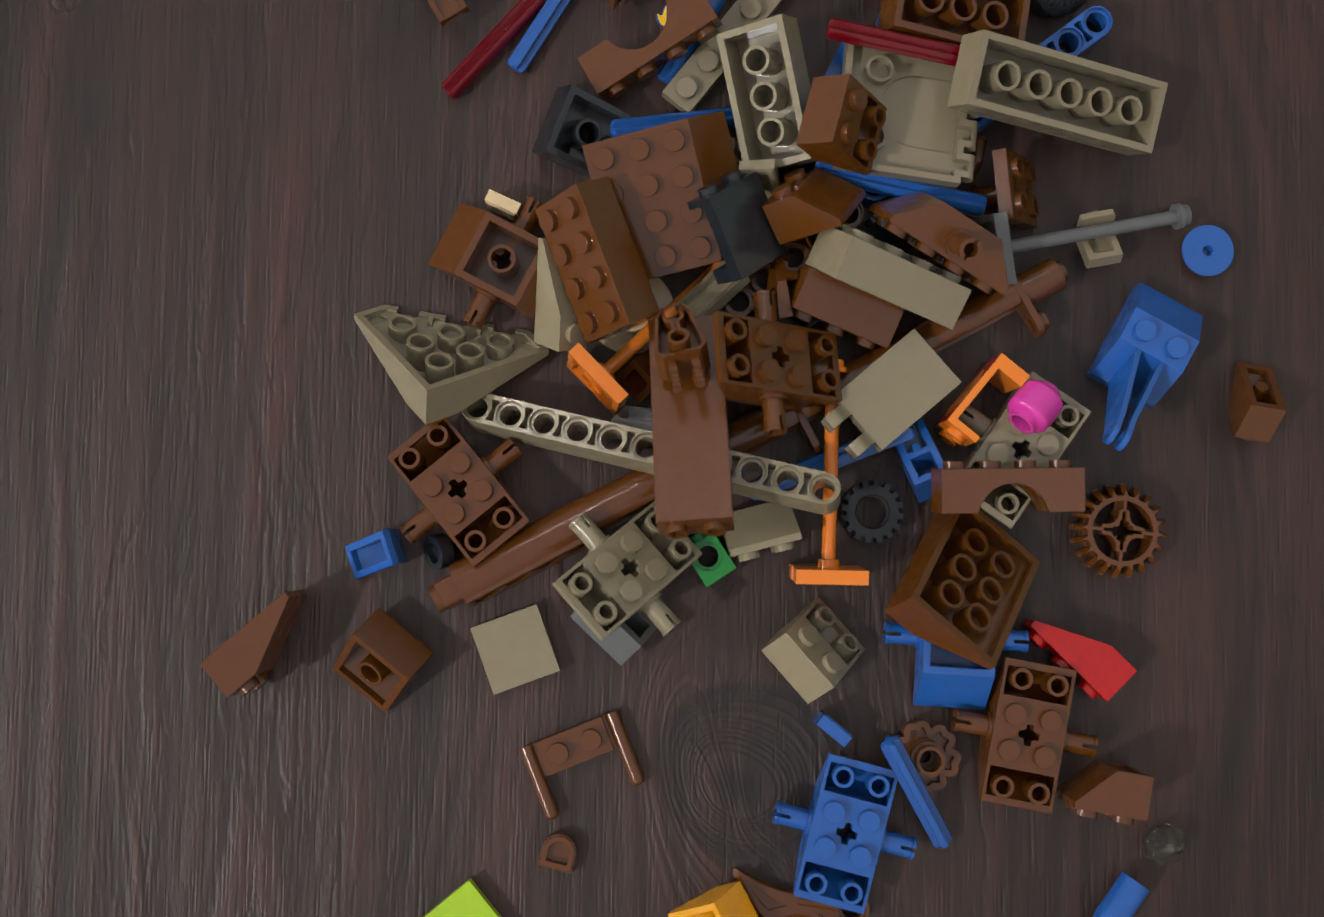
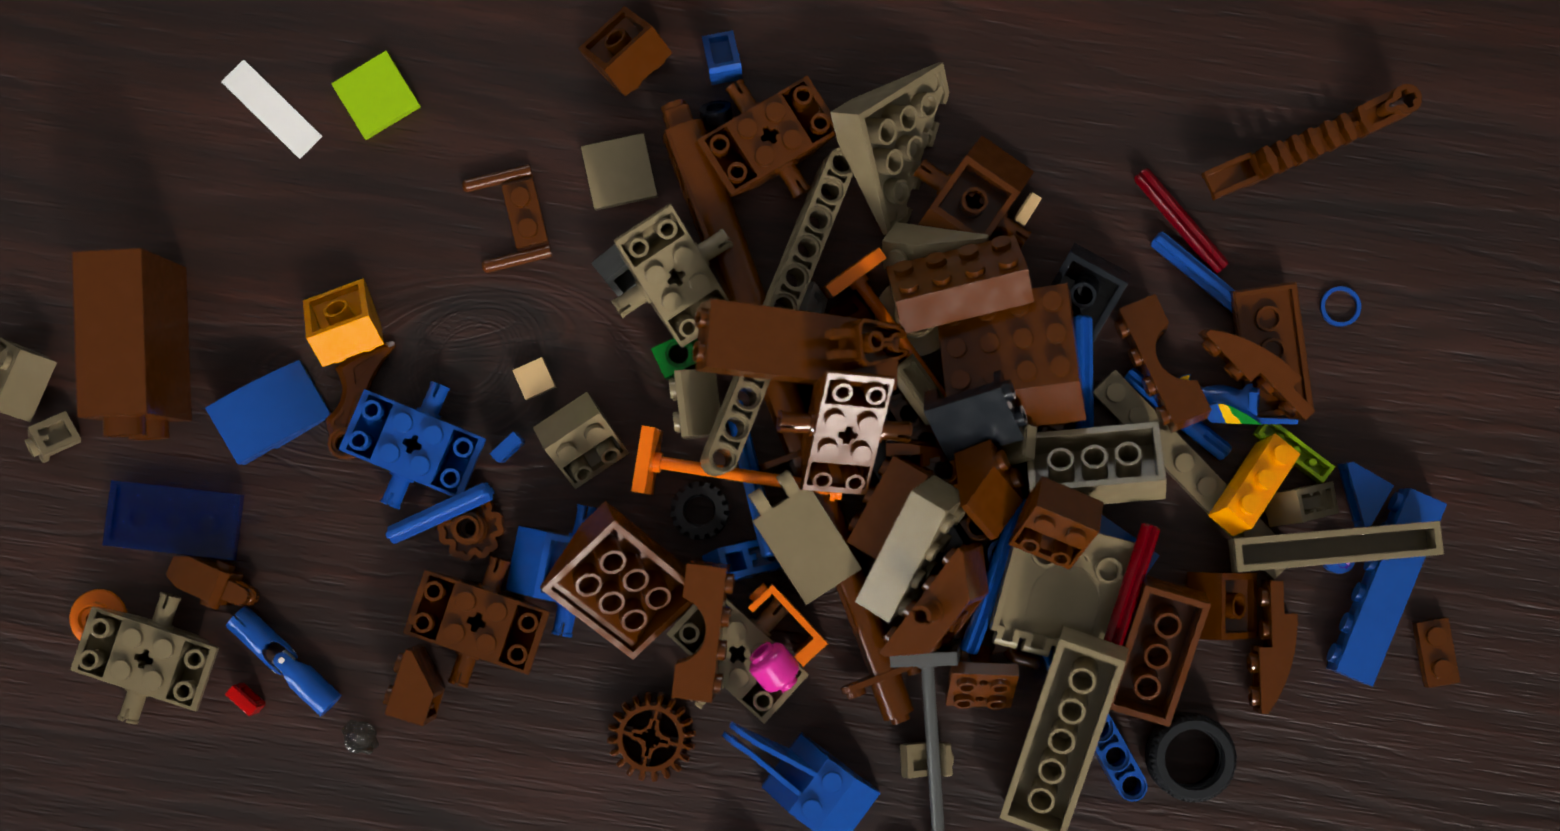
camera: 100 degrees right, 0 degrees up
(558, 852) = (431, 187): reddish brown tile -> none
(752, 710) = (534, 378): none -> tan tile
(1098, 665) = (536, 694): red slope -> none

